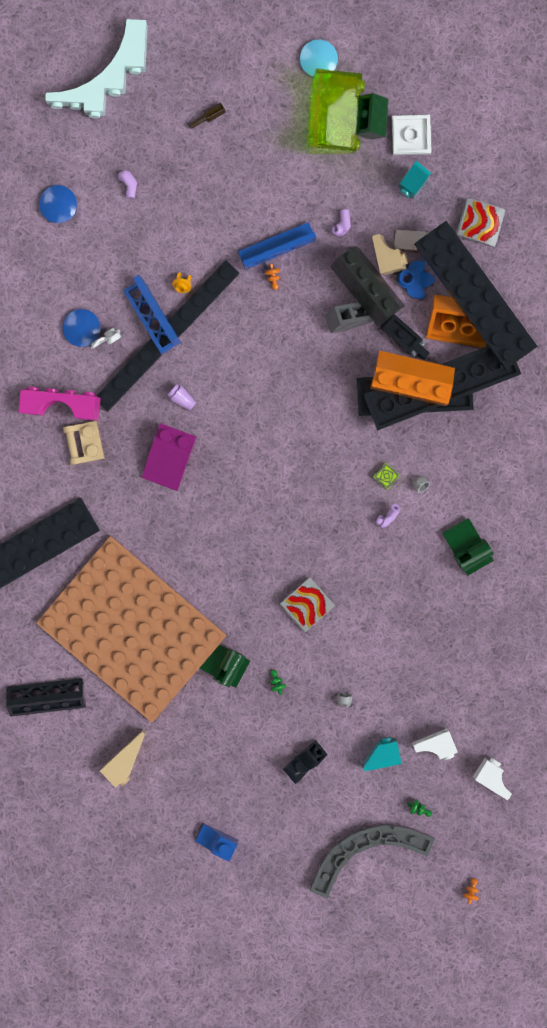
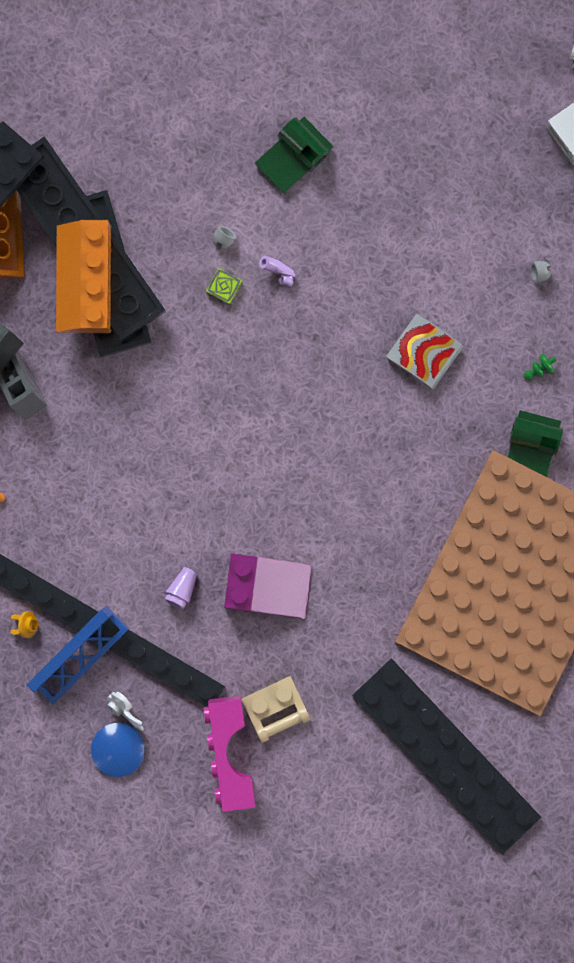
camera: 105 degrees left, 5 degrees down
(405, 337) = (29, 304): black hinge -> none

